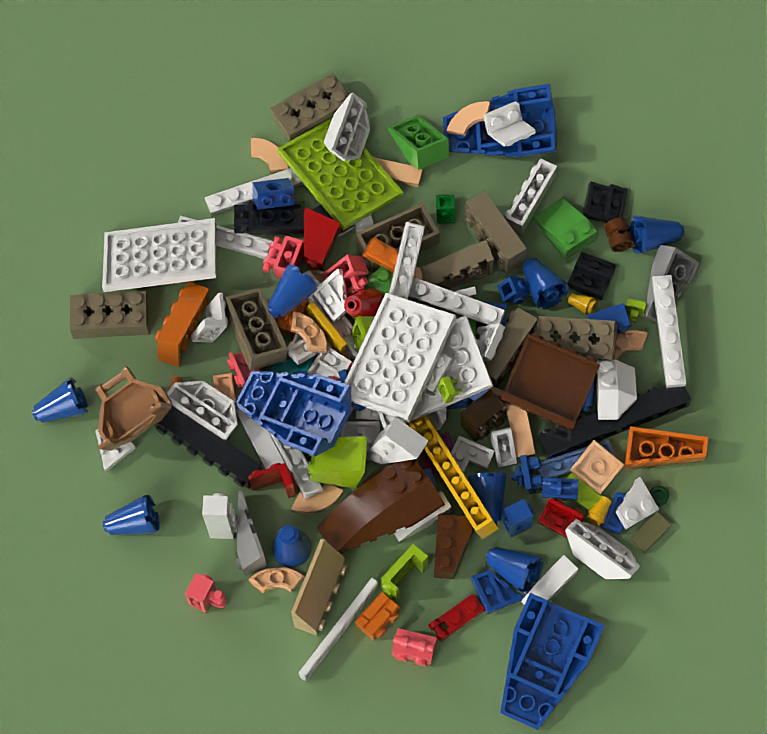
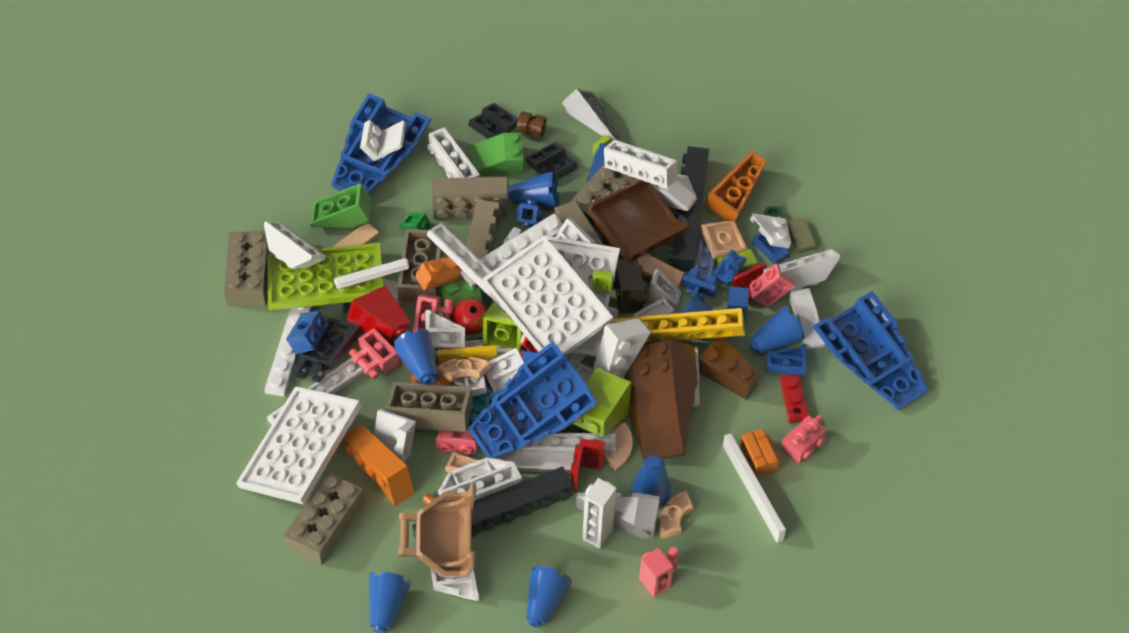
camera: 65 degrees left, 15 degrees down
(268, 152) = (261, 322): light nougat tile -> none
(318, 589) = (709, 482): tan slope -> none
(355, 205) = (371, 273): none -> white axle
(404, 564) = (726, 402): lime panel -> none
(467, 117) = (349, 162): light nougat tile -> none
(557, 532) = (771, 286): none -> coral bracket
(583, 303) = (573, 177): yellow cone -> none
(594, 349) = (640, 163): none -> white brick
(599, 511) = (763, 255): yellow cone -> none
(653, 232) = (547, 103): blue cone -> none
(668, 331) = (643, 130): white plate -> none

